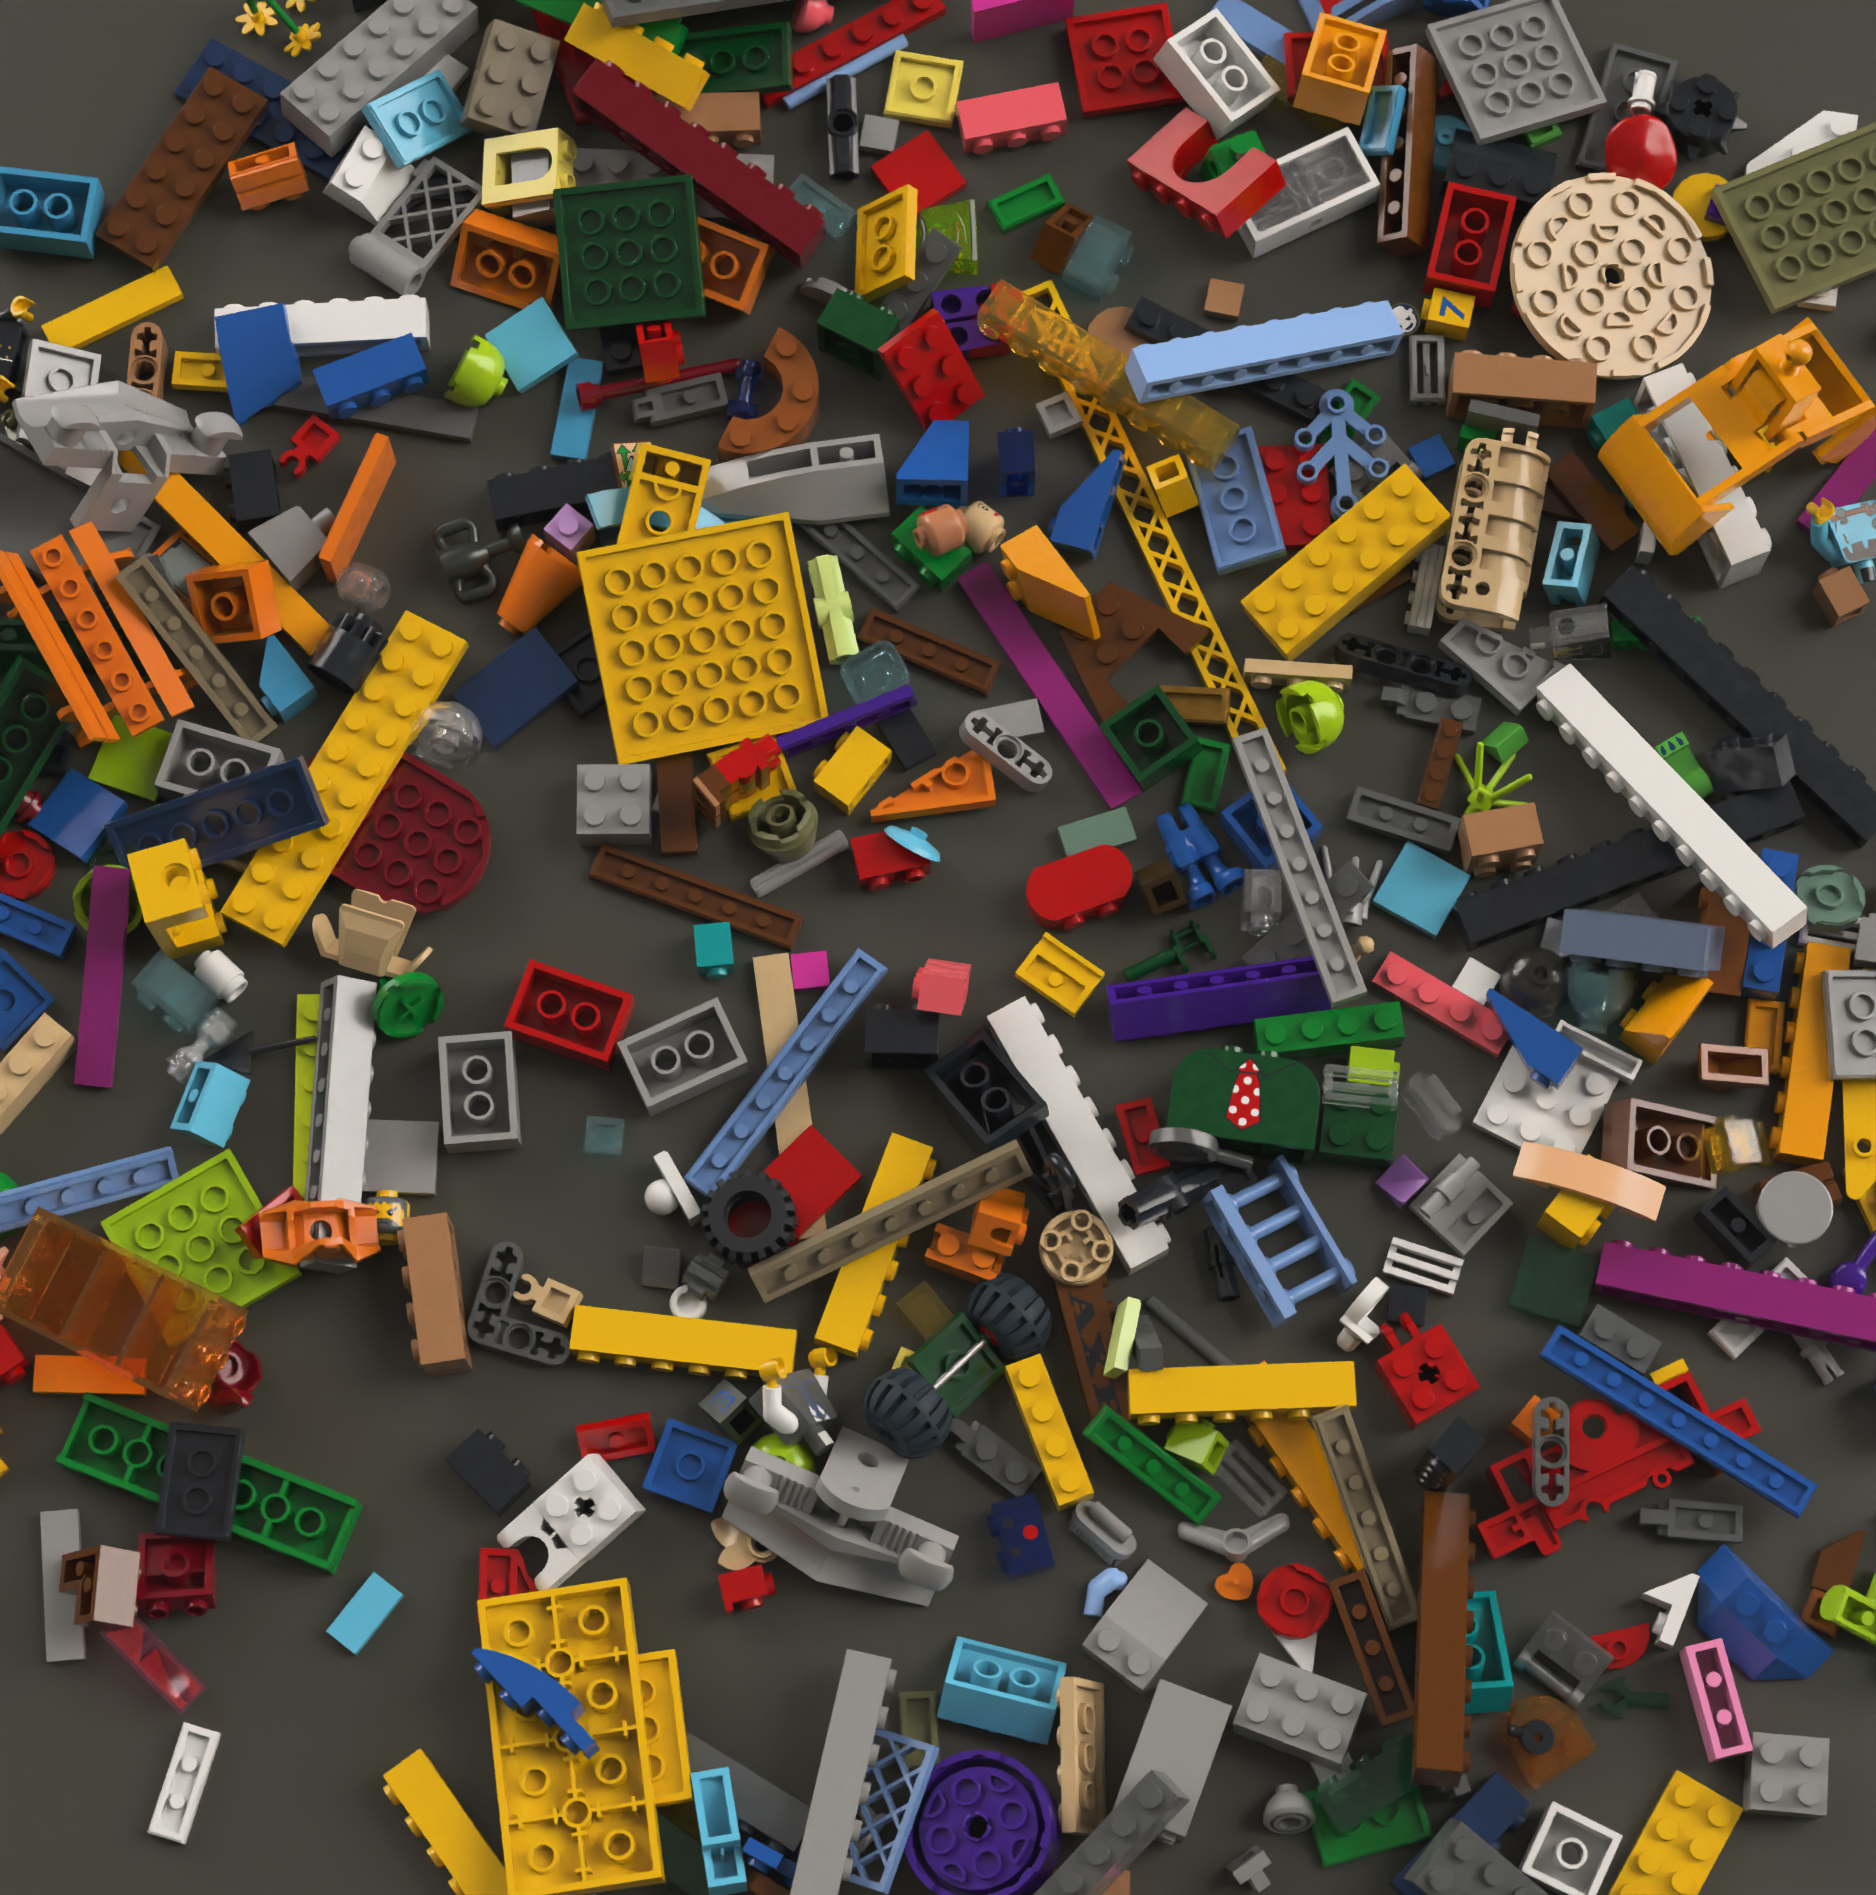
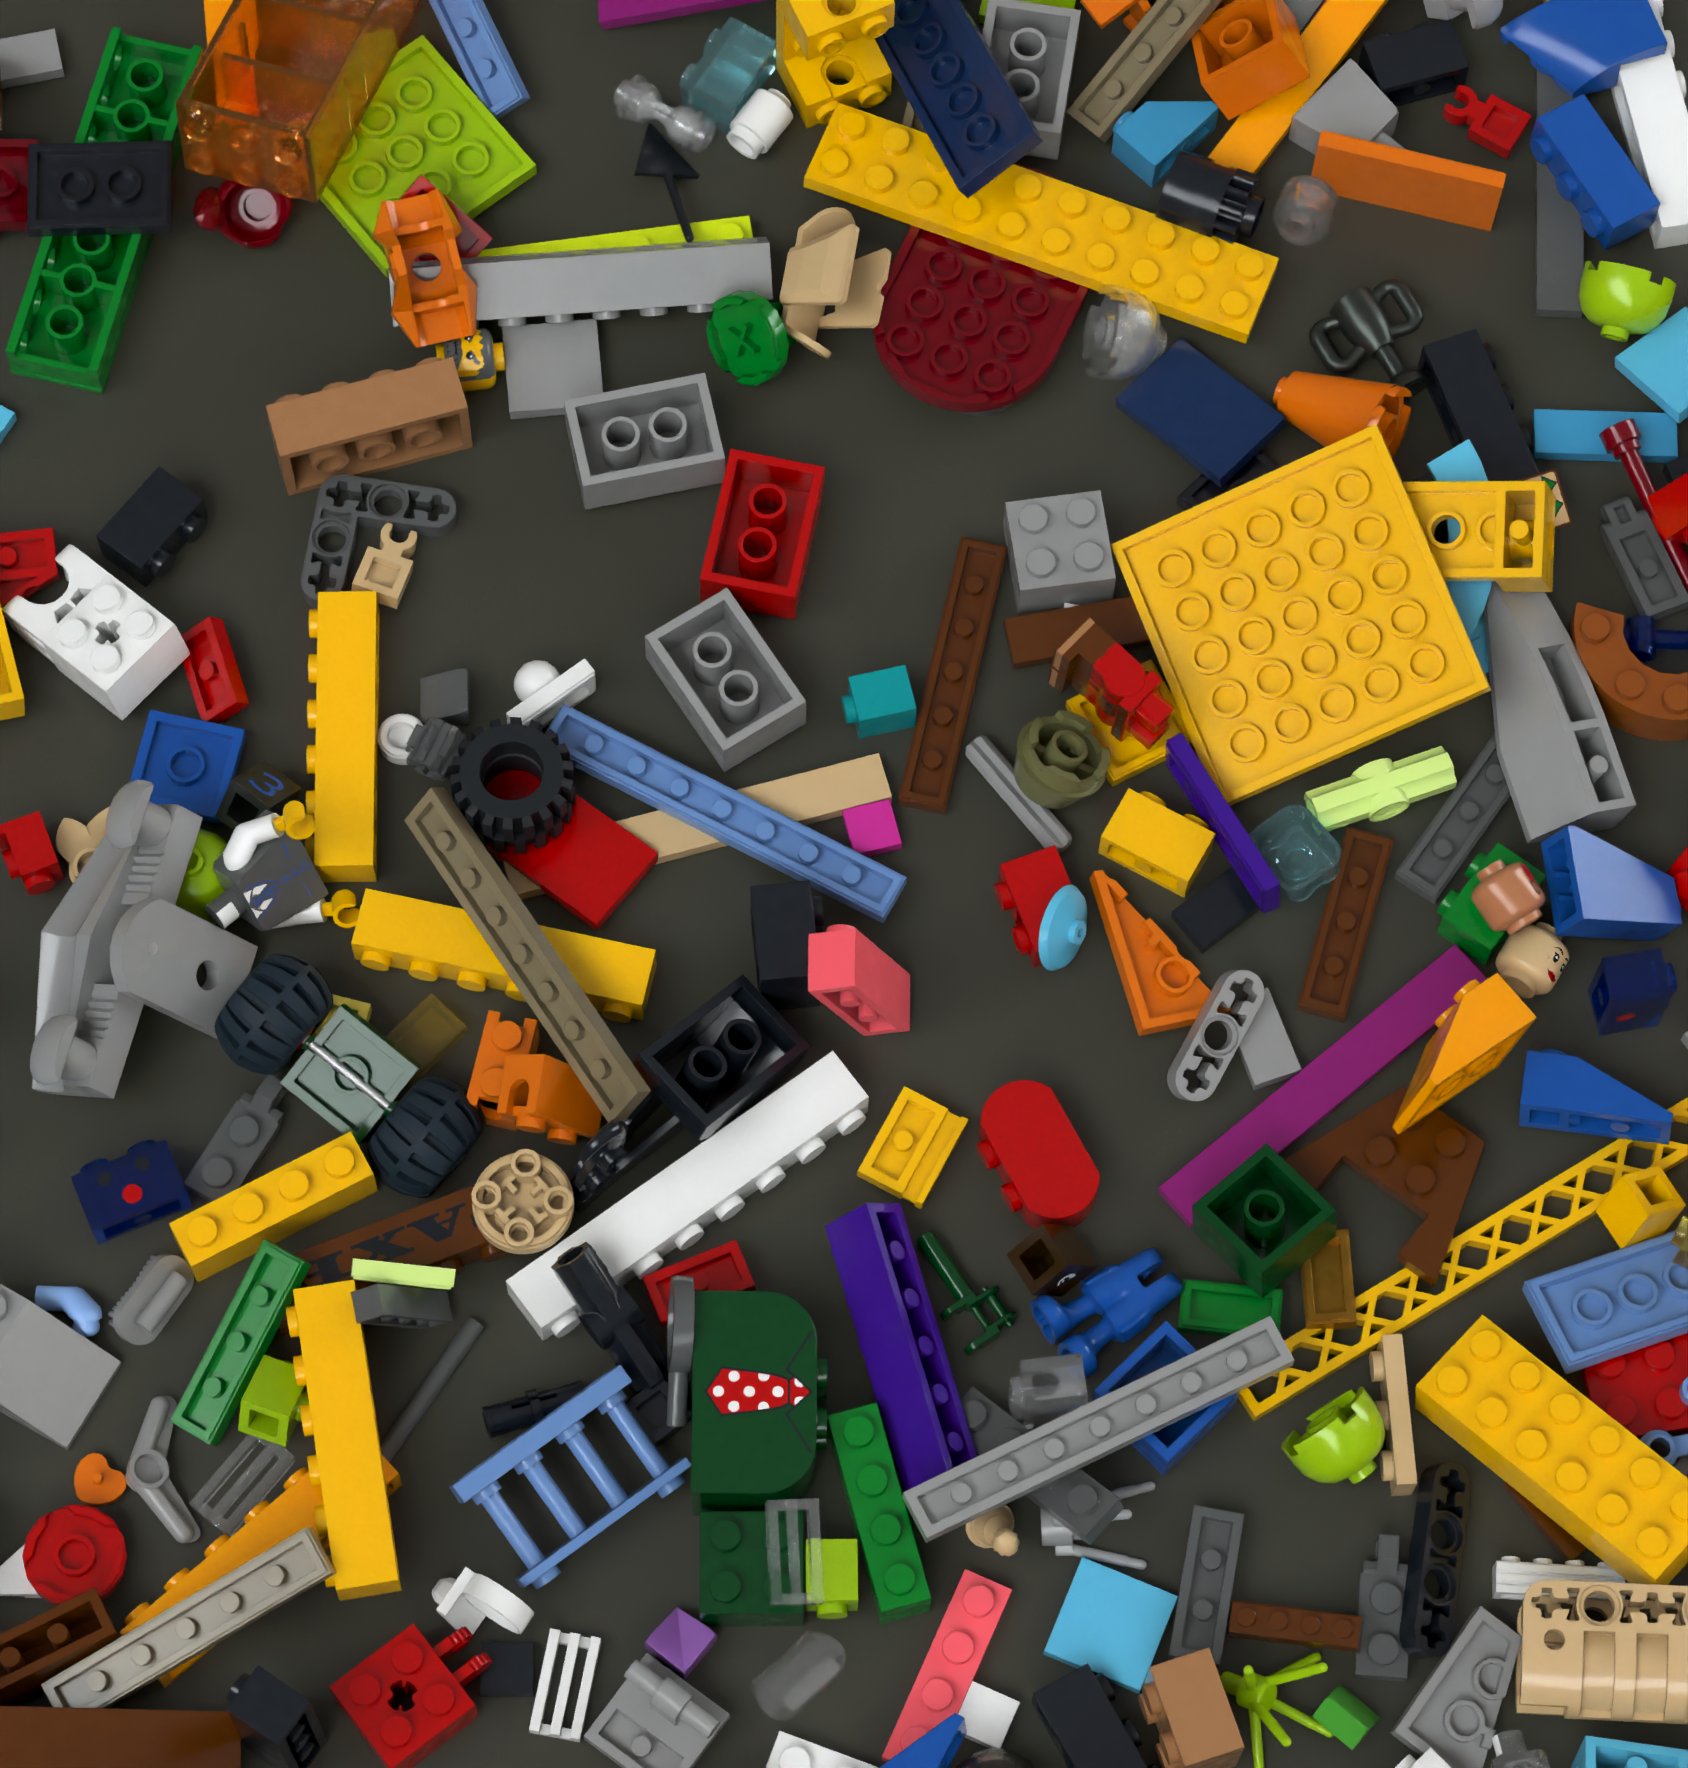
camera: 80 degrees right, 5 degrees down
(210, 1104) = (587, 133): medium azure brick -> none
(569, 533) = (1423, 440): lavender brick -> none
(604, 1136) = (610, 603): clear light blue plate -> none
(1108, 828) = (1123, 1175): sand green tile -> none

